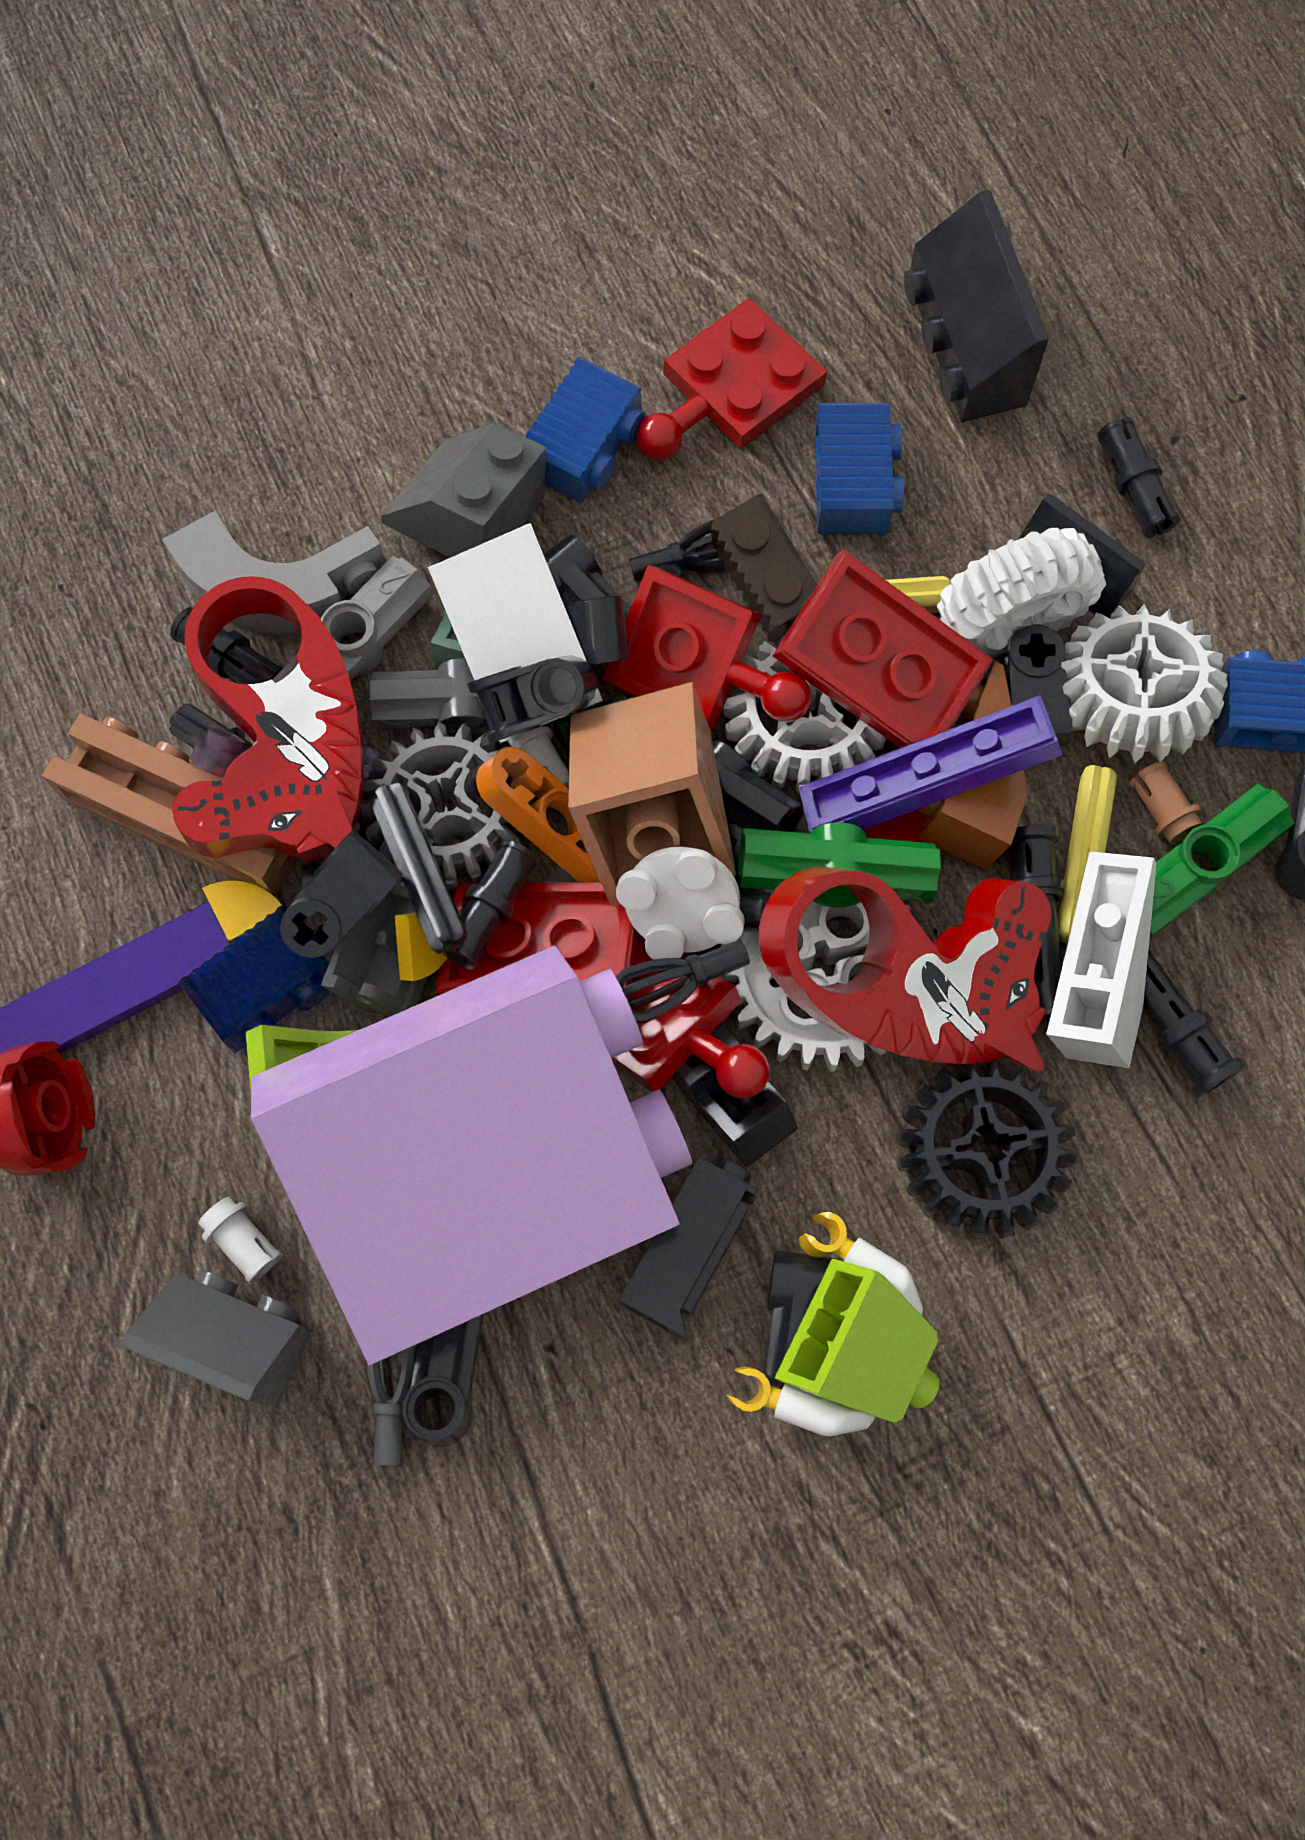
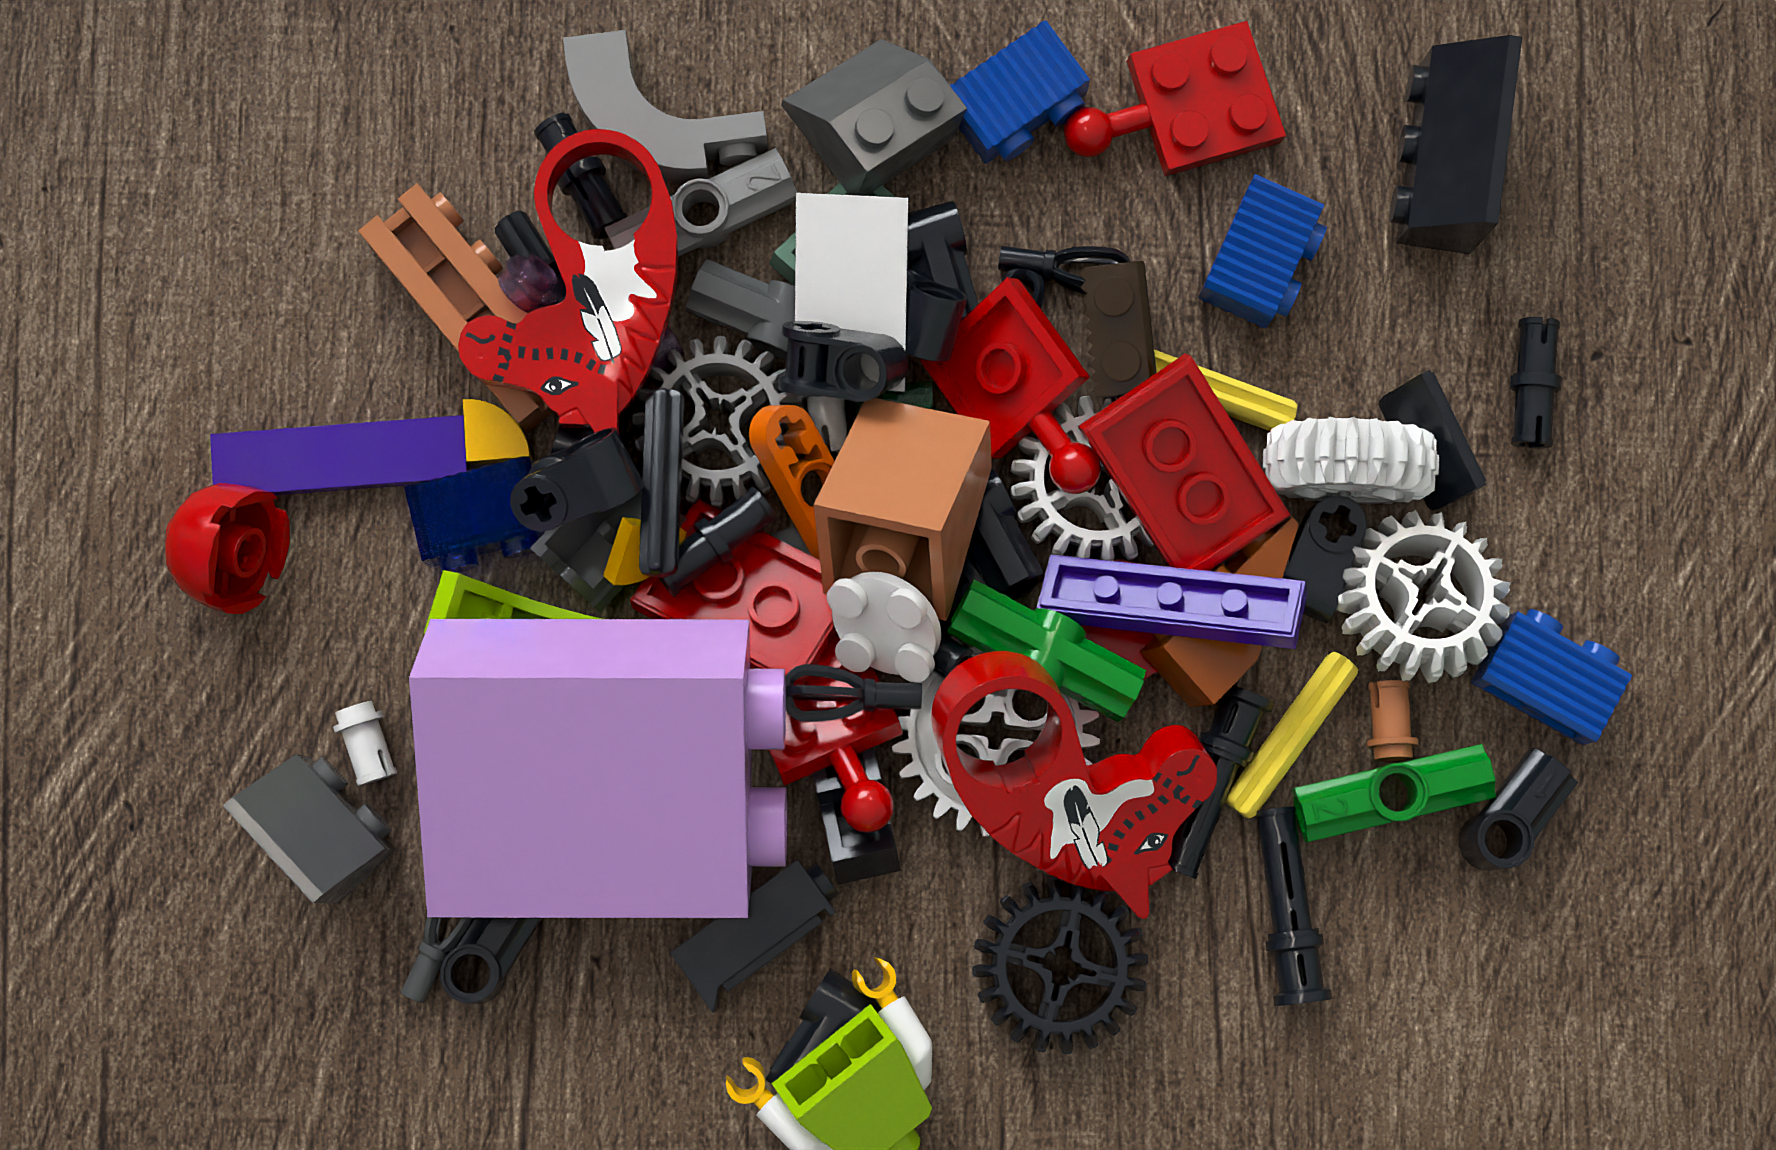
camera: 20 degrees right, 10 degrees up
(1105, 962) = (1249, 848): white slope -> none

